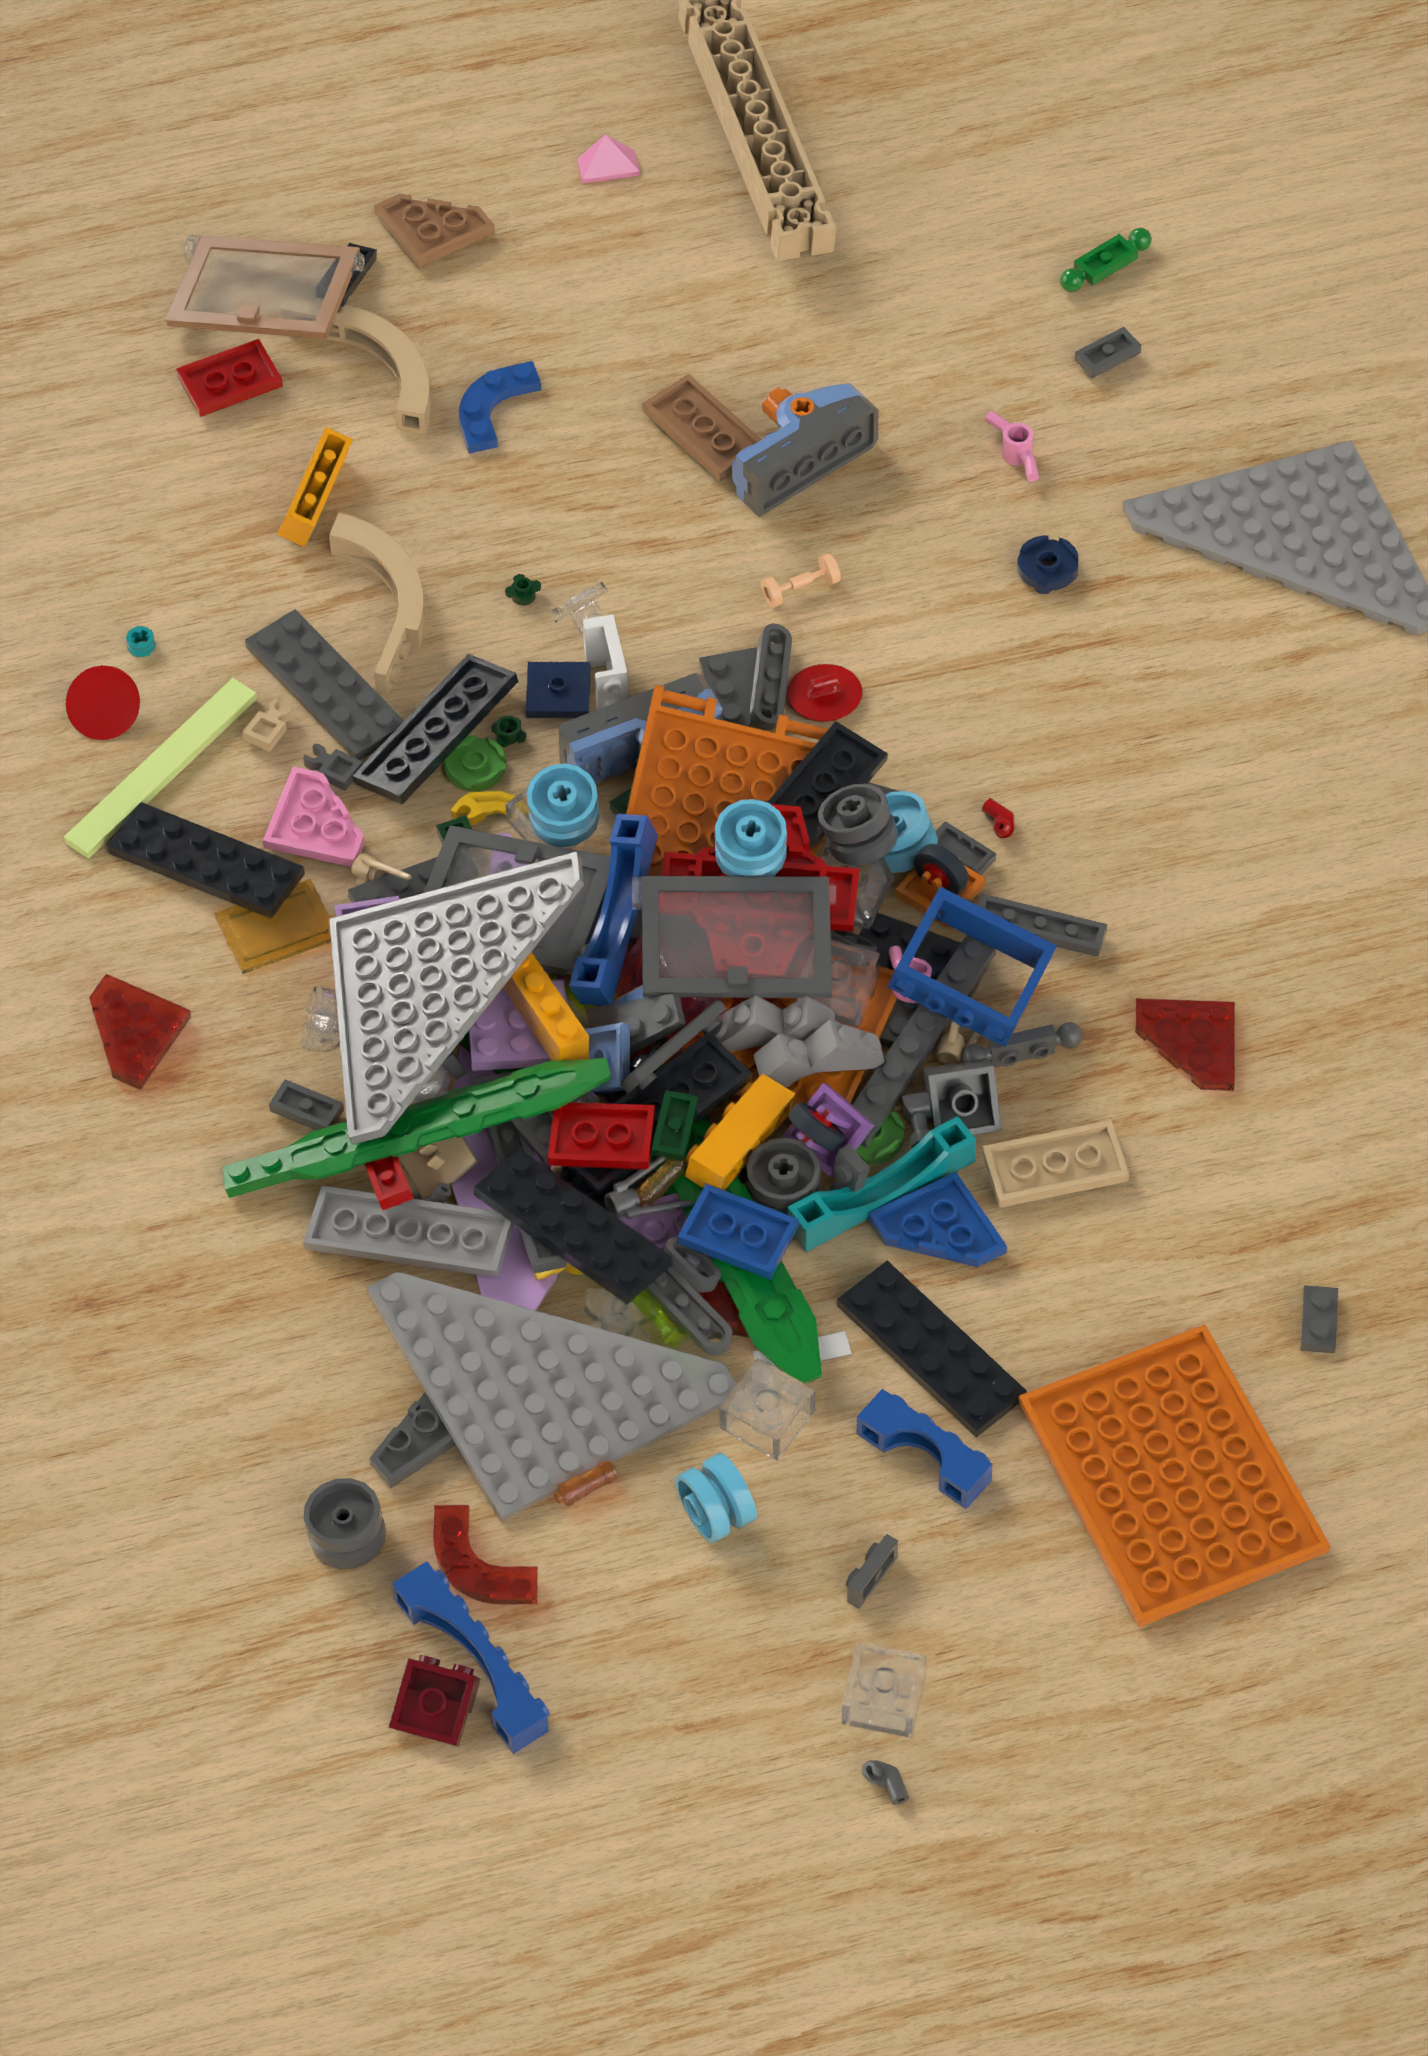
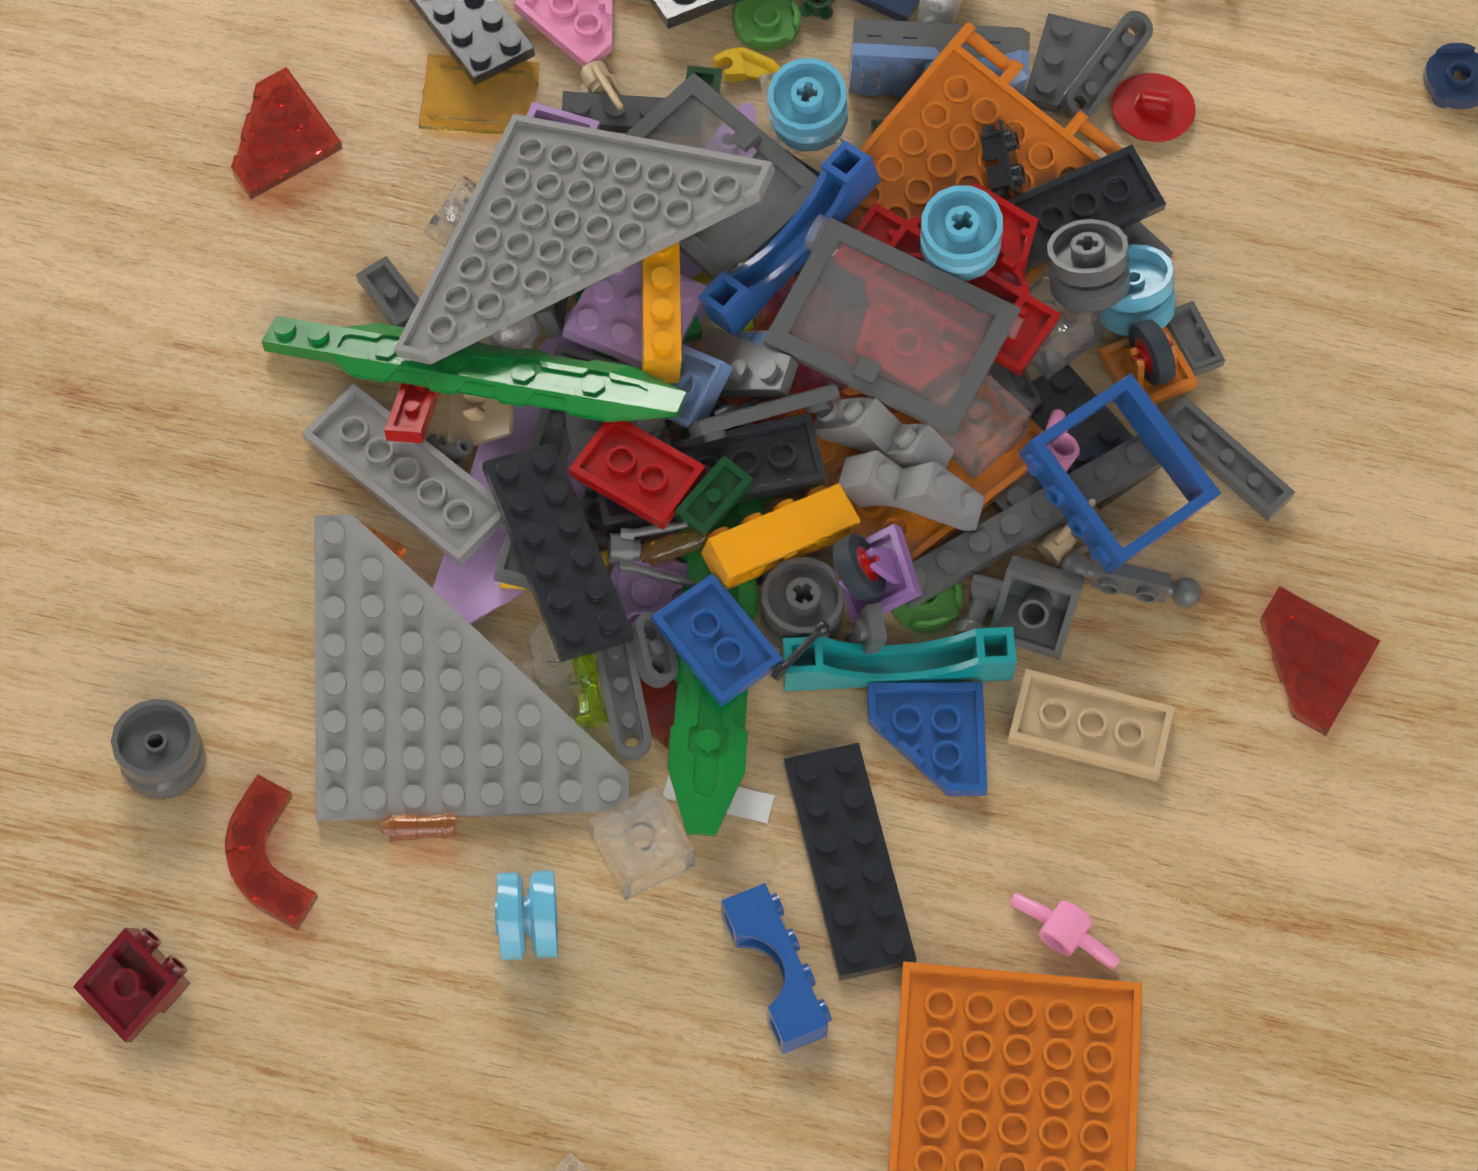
camera: 25 degrees right, 10 degrees up
(412, 1444) = (275, 697): dark grey wing -> none
(427, 1599) = (202, 1040): blue arch -> none
(736, 766) = (1001, 145): none -> black hinge
(813, 1184) = (821, 629): none -> black hinge
(877, 1562) = (627, 1080): dark grey plate -> none
(1003, 818) = (1256, 324): red arm -> none
(1125, 1315) = (1065, 929): none -> bright pink piece
(1319, 1319) = (1269, 1037): dark grey plate -> none

